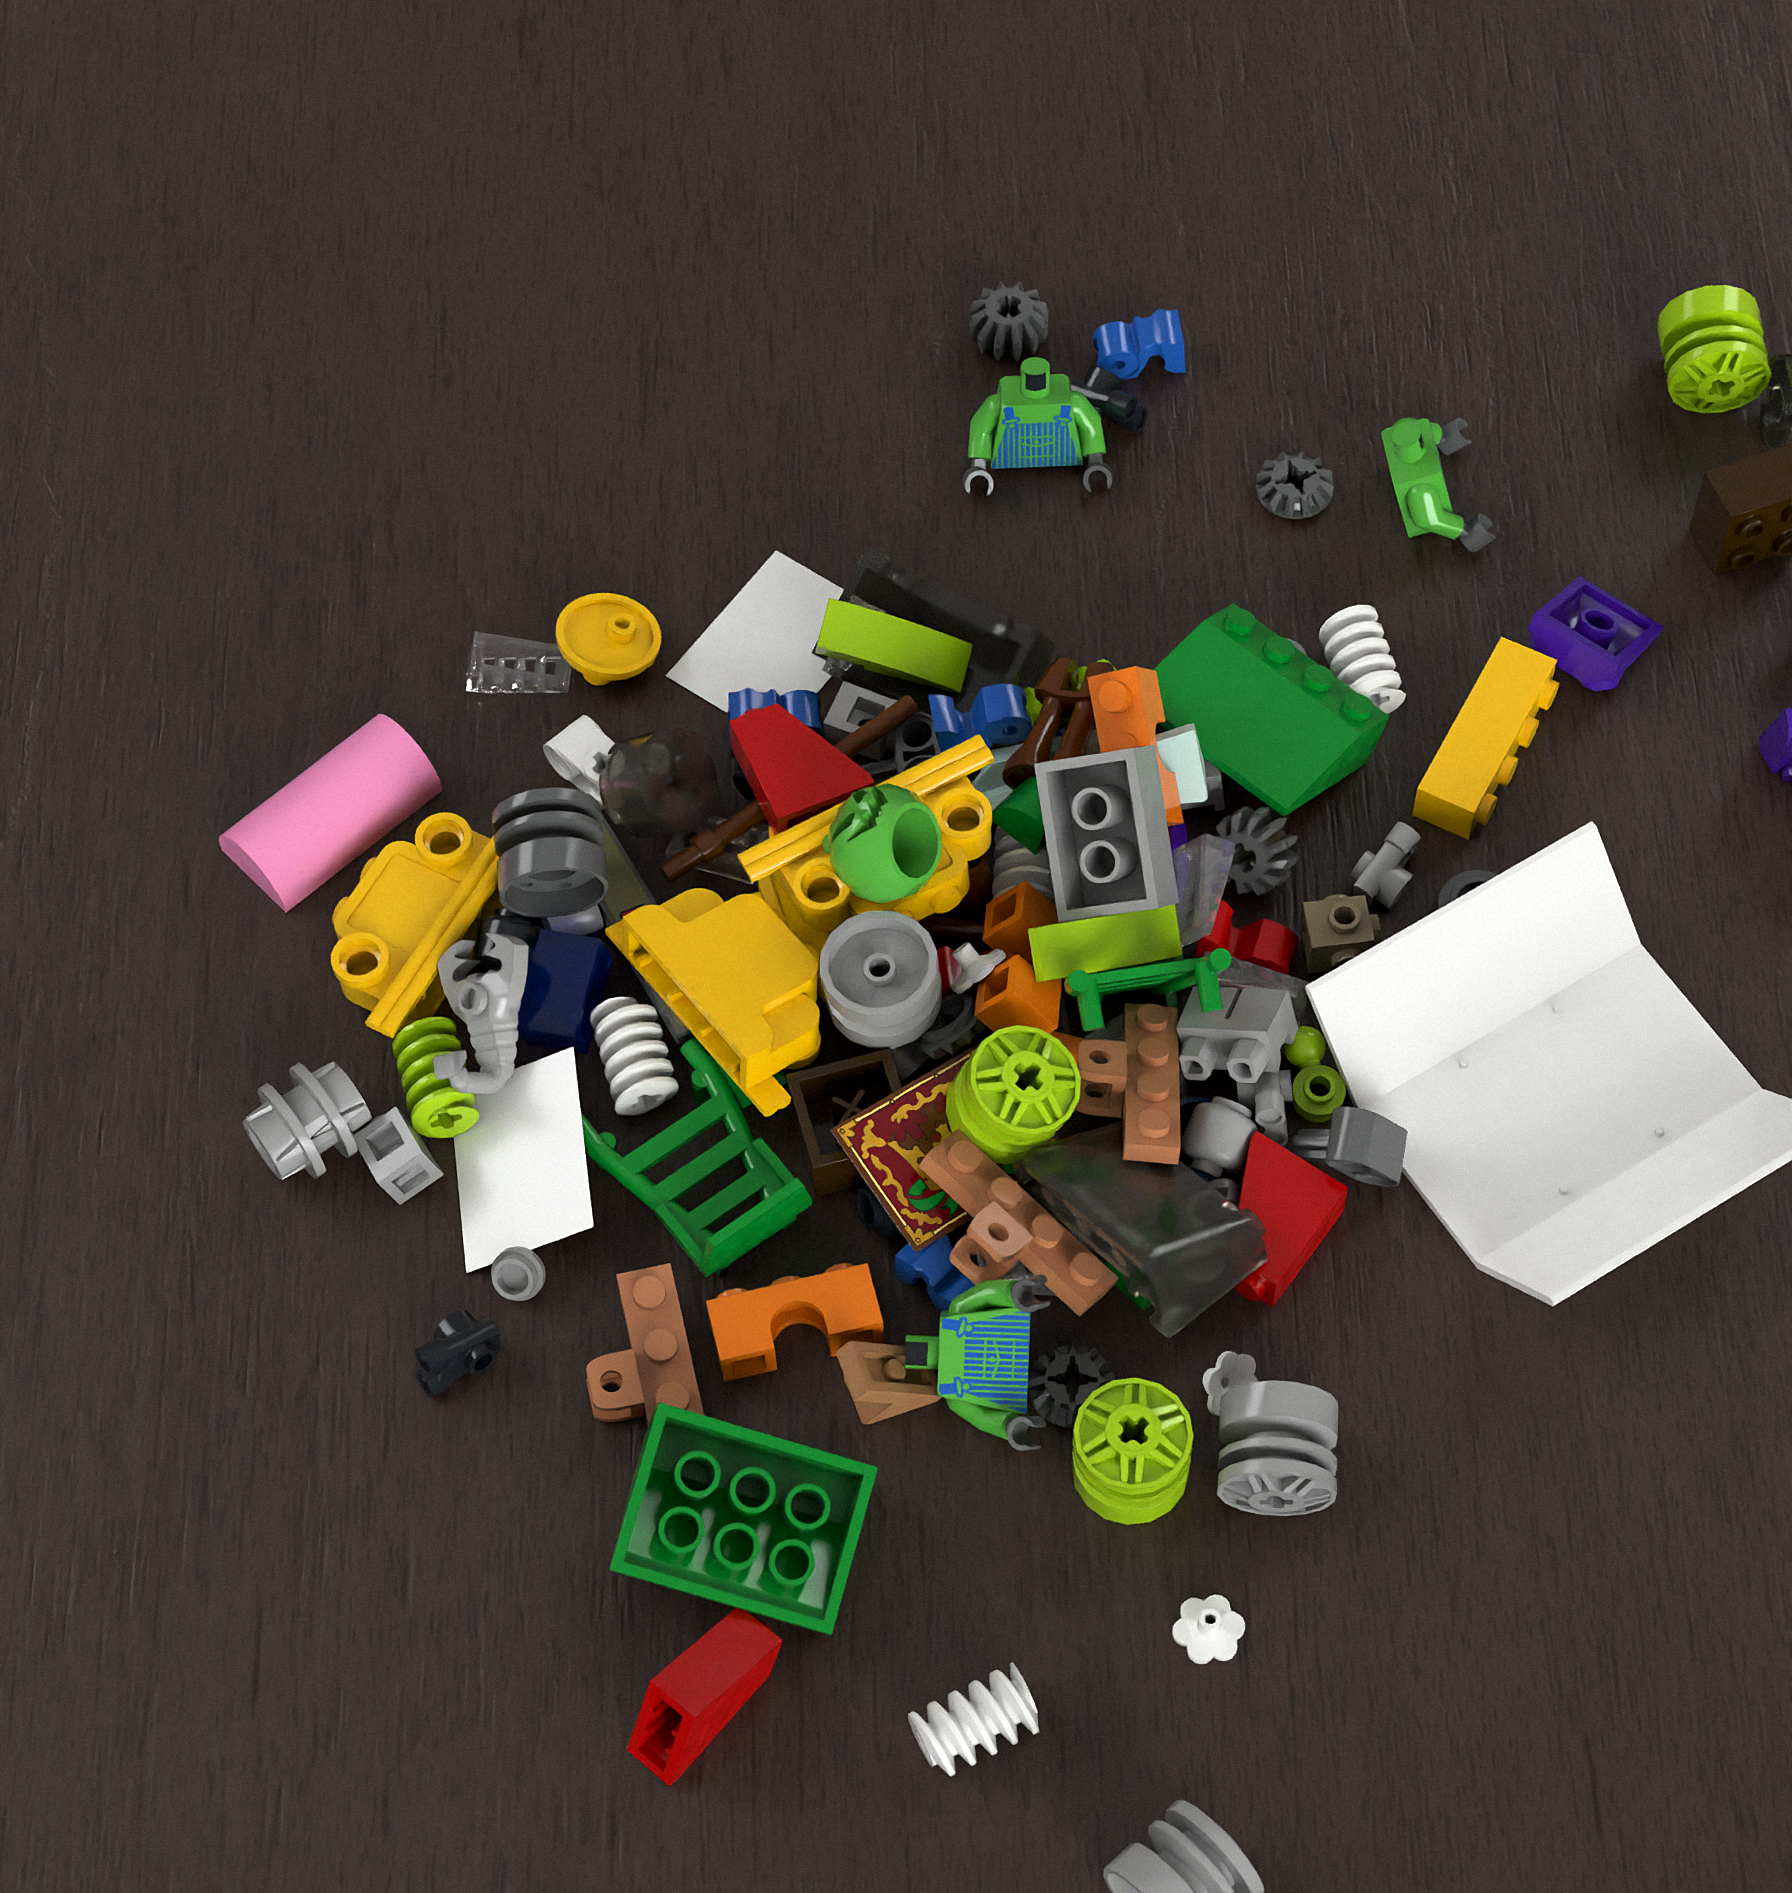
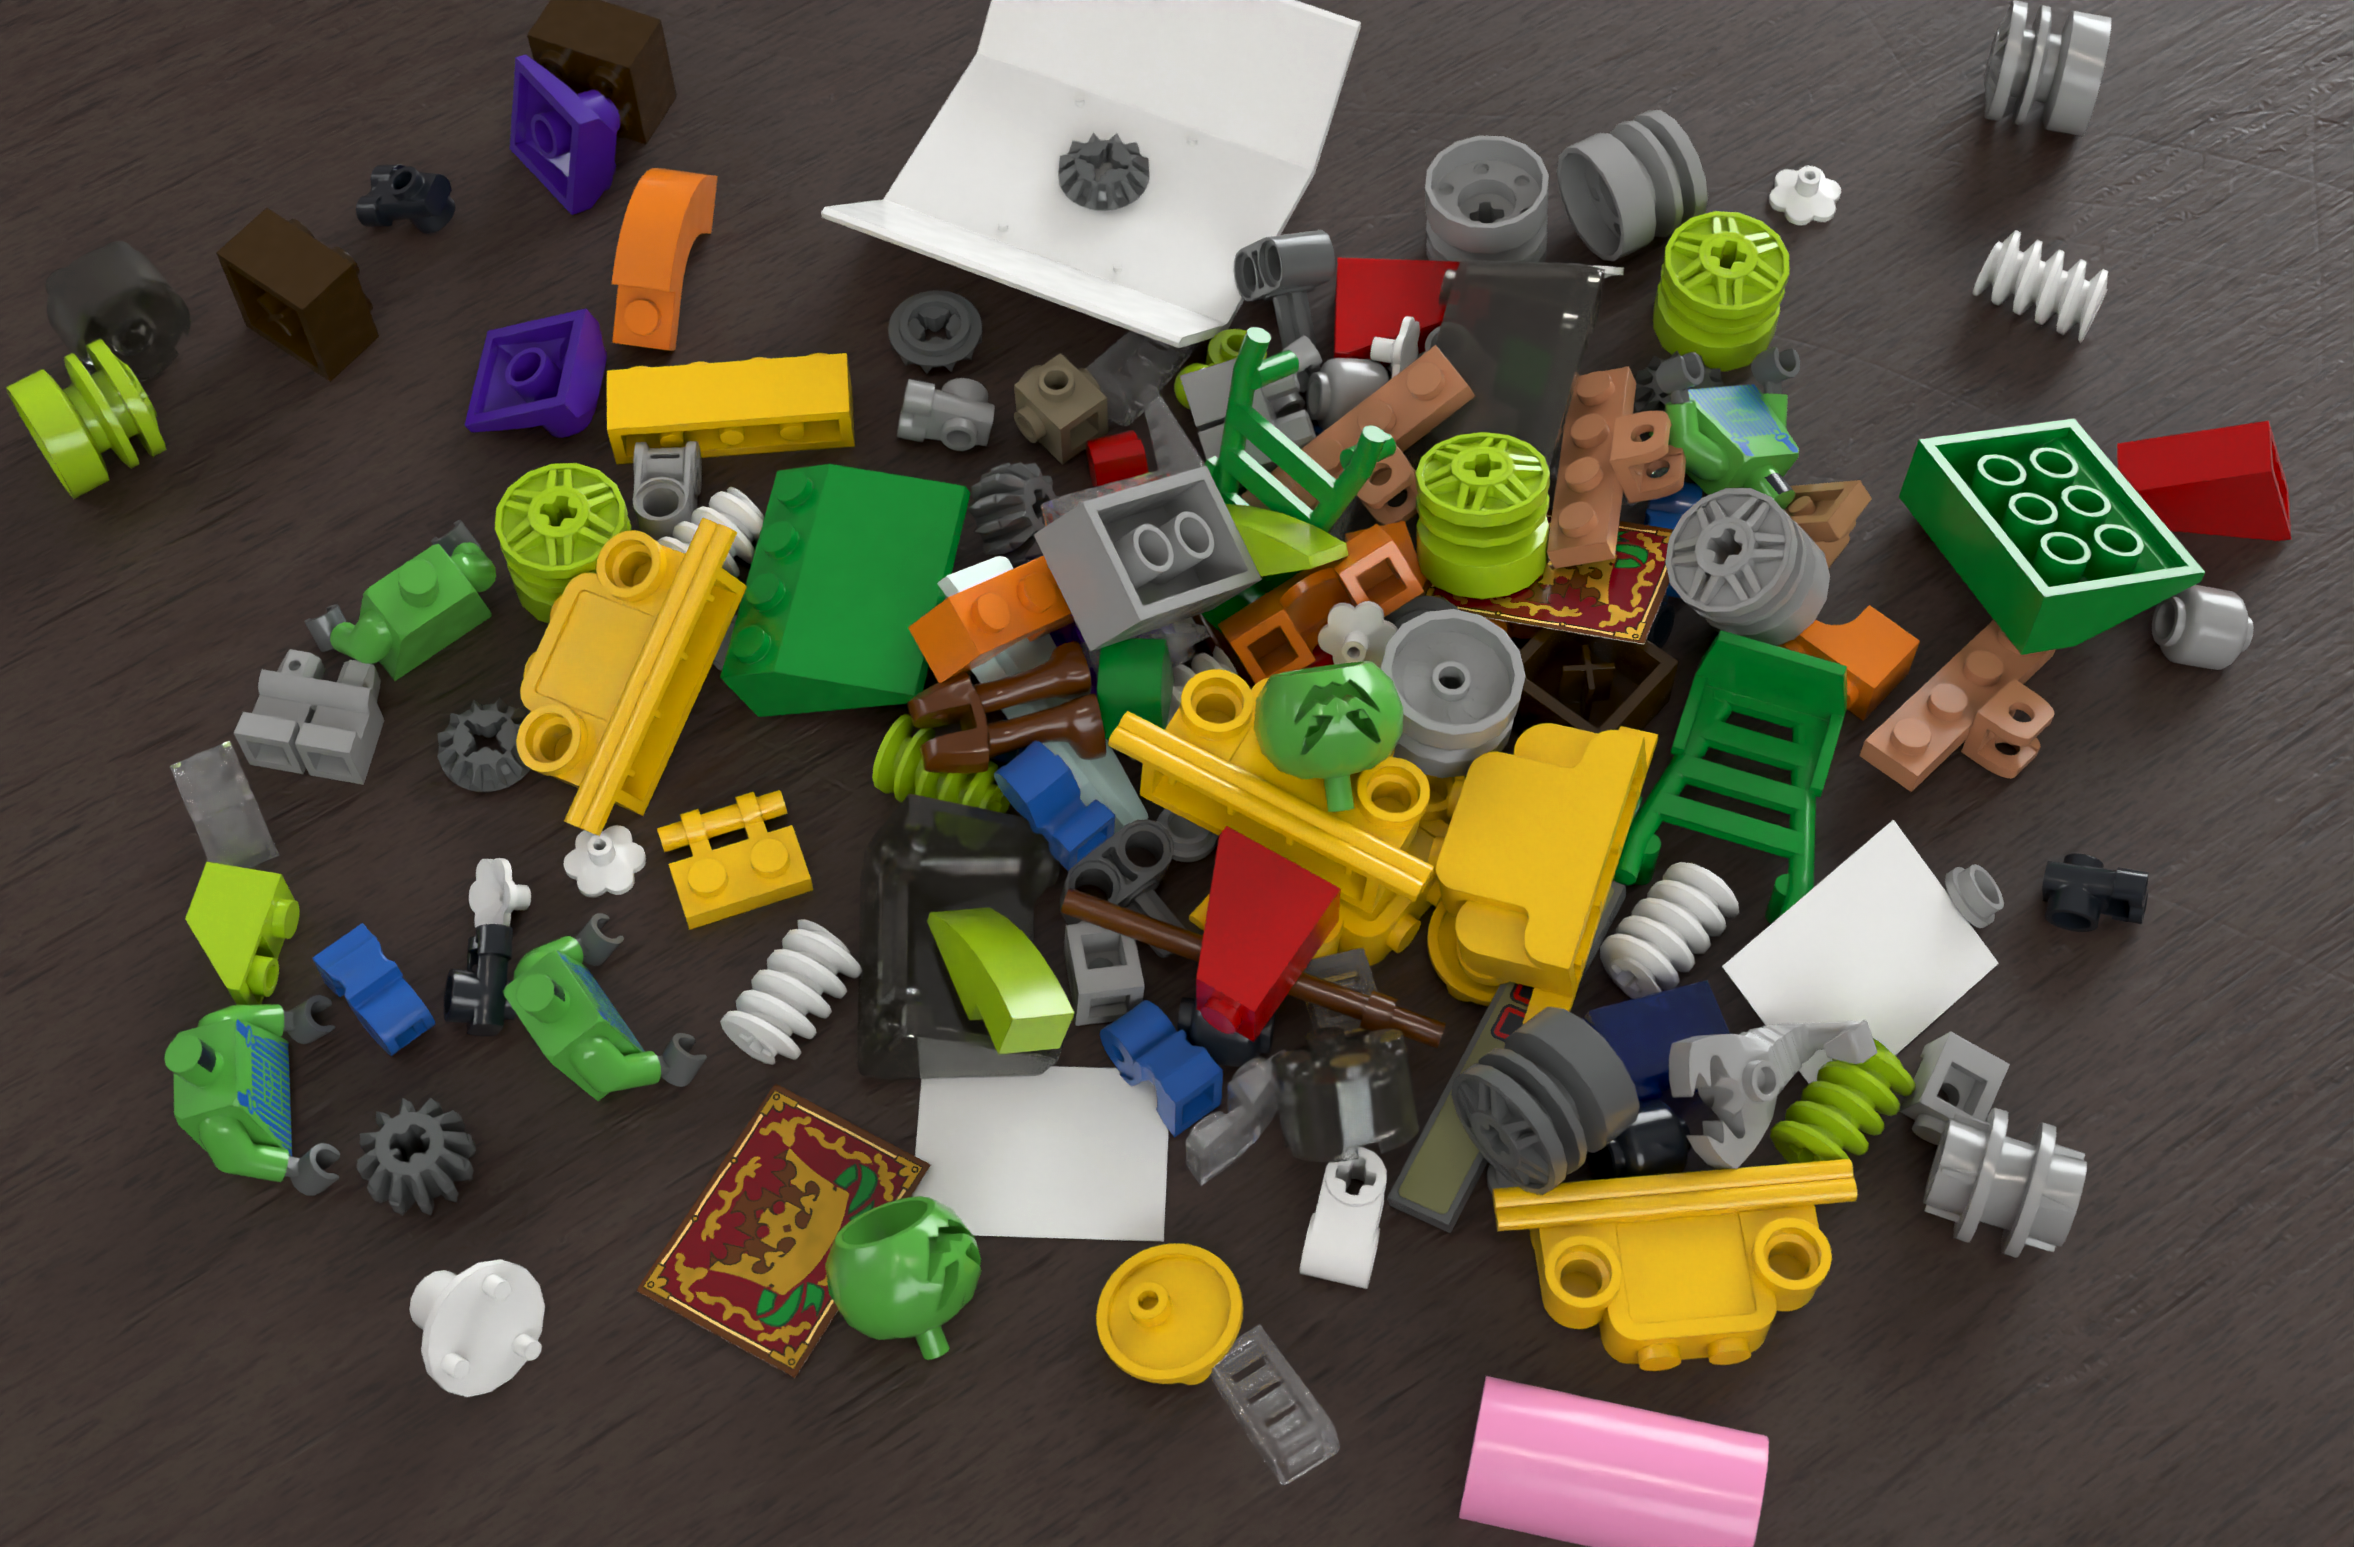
camera: 125 degrees left, 0 degrees up
(593, 1595) = (2202, 627): none -> light grey head
(703, 721) = (1224, 1138): none -> clear slope
(733, 502) = (904, 1271): none -> bright green piece
(828, 490) = (765, 1223): none -> sticker
(847, 1254) = (1747, 566): none -> light grey wheel
(870, 296) = (478, 1325): none -> white piece
(973, 550) = (790, 991): none -> white piece
(1091, 575) = (739, 875): none -> yellow plate
(1113, 245) = (237, 1091): none -> bright green torso
(1160, 514) = (605, 862): none -> white plant
(1165, 439) = (495, 894): none -> white plant
(1220, 1168) = (1400, 351): none -> white plant
(1235, 295) = (242, 926): none -> lime slope
(1273, 552) = (625, 668): none -> yellow brick
(1328, 1296) = (1487, 202): none -> light grey wheel
(1352, 332) = (224, 808): none -> clear slope
(1373, 391) = (314, 721): none -> light grey hips
(1416, 574) = (555, 528): none -> lime wheel
(1436, 665) = (665, 486): none -> light grey piece
(1562, 1120) = (1116, 187): none -> dark grey gear
(1676, 749) = (653, 252): none -> orange arch

